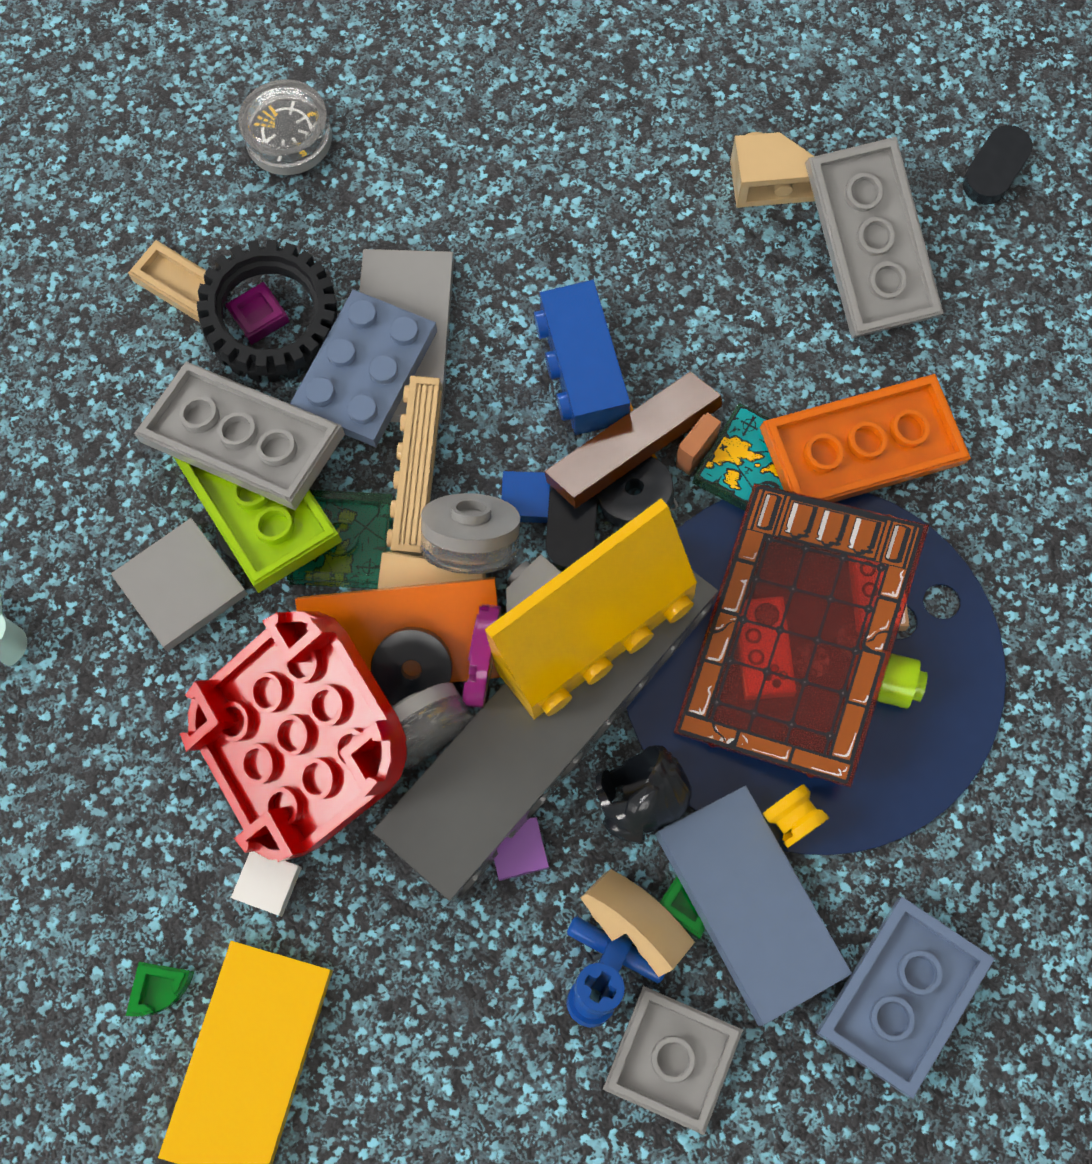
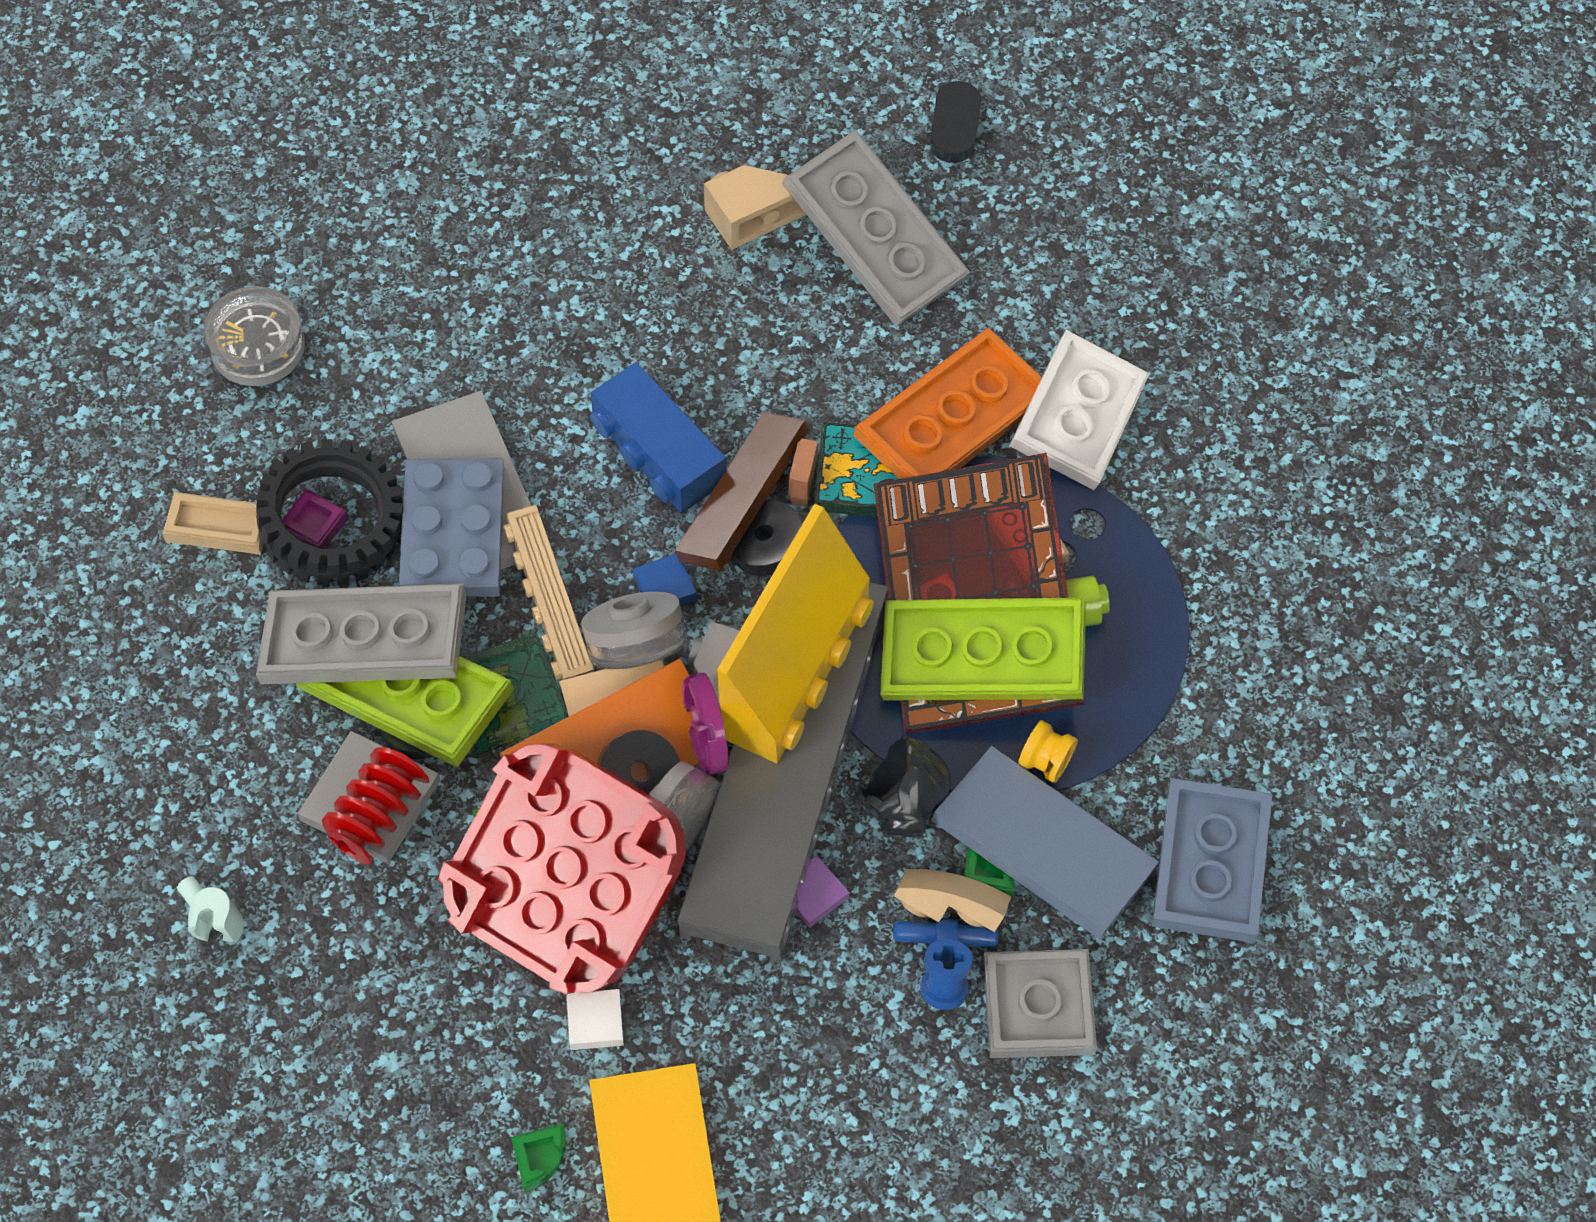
camera: 30 degrees left, 10 degrees down
(163, 600) = (371, 801): none -> red piece
(569, 530) = (721, 594): black tile -> none
(782, 692) = (984, 649): none -> lime tile
(985, 488) = (1080, 409): none -> white tile

